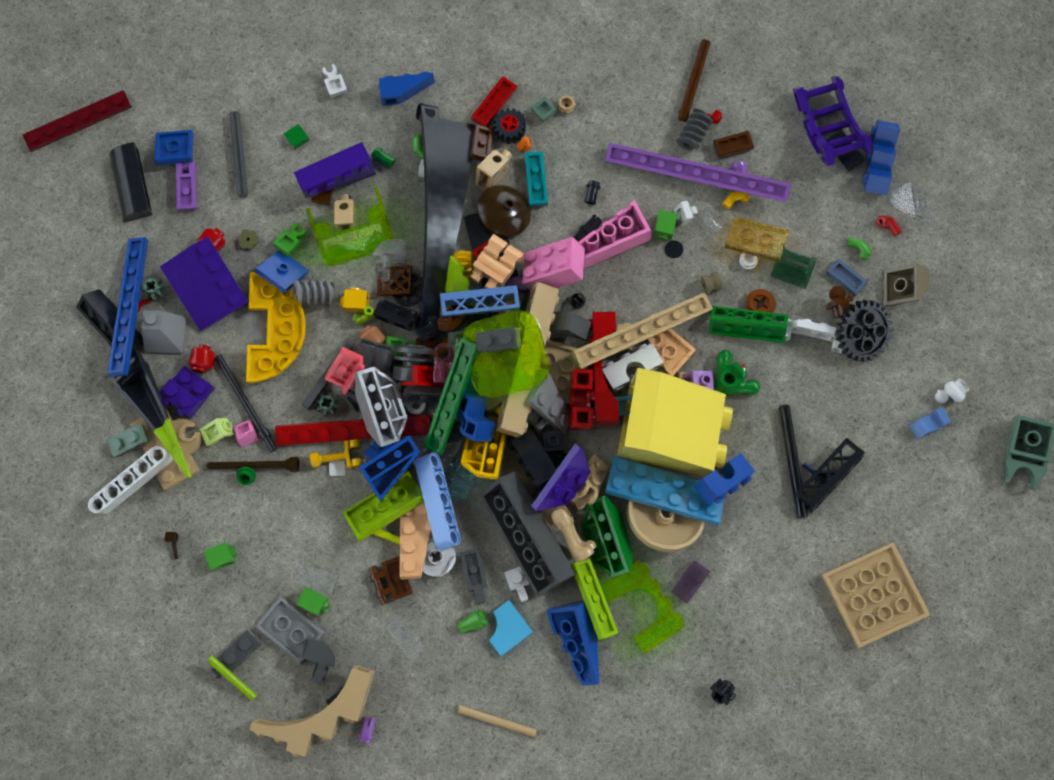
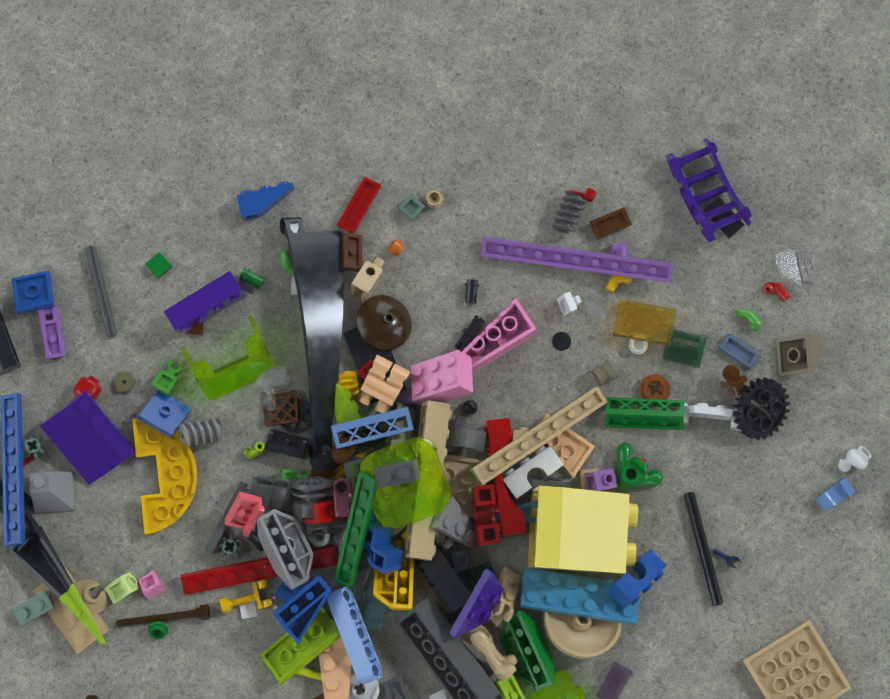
camera: 10 degrees left, 5 degrees up
(121, 482) = (34, 654): white beam -> none
(186, 392) = (84, 550): dark purple plate -> none
(201, 359) = (95, 514): red head -> none
(264, 434) = (169, 584): black bar -> none
(334, 82) = (191, 203): white plate -> none
(344, 213) = (221, 346): tan torso -> none
(354, 300) = (243, 435): yellow brick -> none
(373, 334) = (265, 469): nougat head -> none
(506, 120) = (379, 222): black wheel -> none
(536, 179) = (412, 283): teal plate -> none
(665, 225) = (550, 319): bright green brick -> none
(694, 80) = (563, 157): reddish brown axle -> none
(835, 480) = (745, 566): black fence -> none
(881, 160) = (763, 221): blue brick -> none

